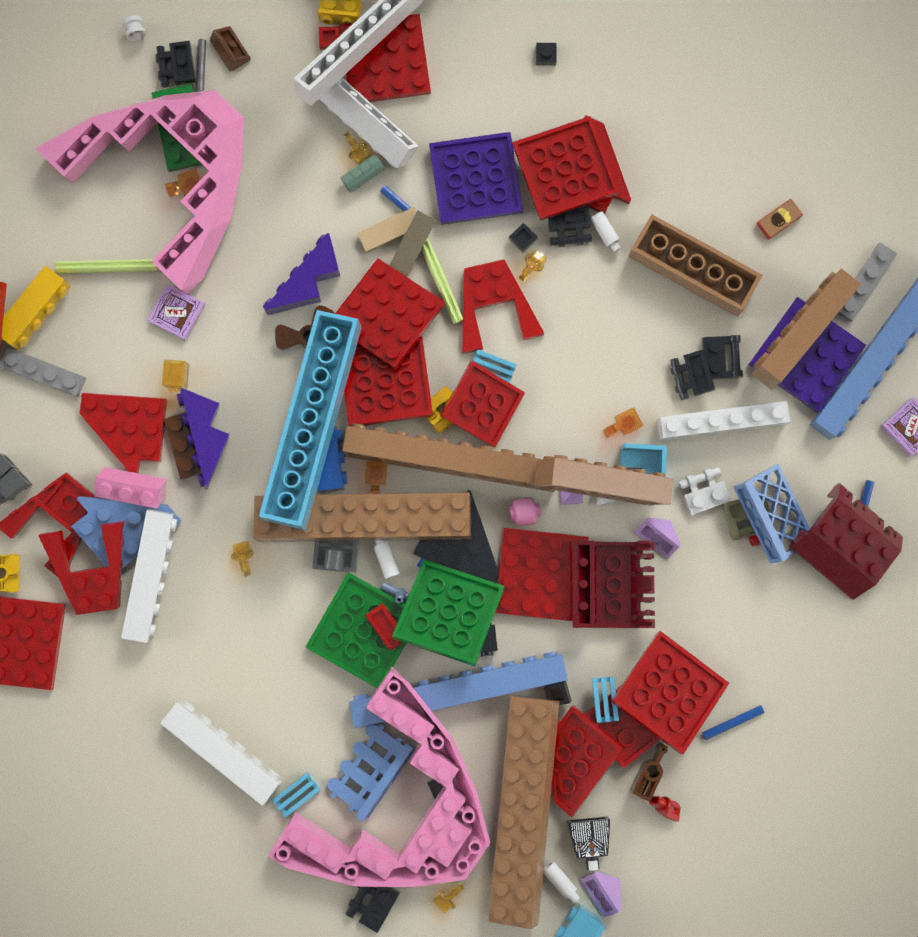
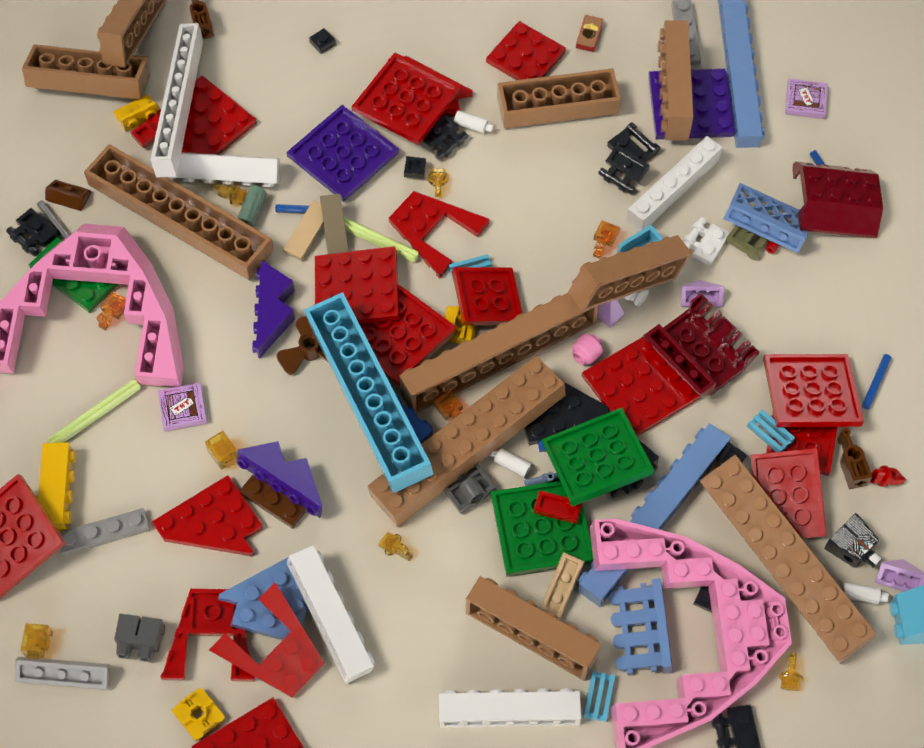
camera: 40 degrees left, 20 degrees down
(130, 487) = (256, 559): bright pink brick -> none
(285, 708) = (532, 627): none -> medium nougat brick
(299, 136) = (179, 211): none -> medium nougat brick
(335, 691) = (561, 585): none -> tan tile
(707, 198) = (525, 53): none -> red plate

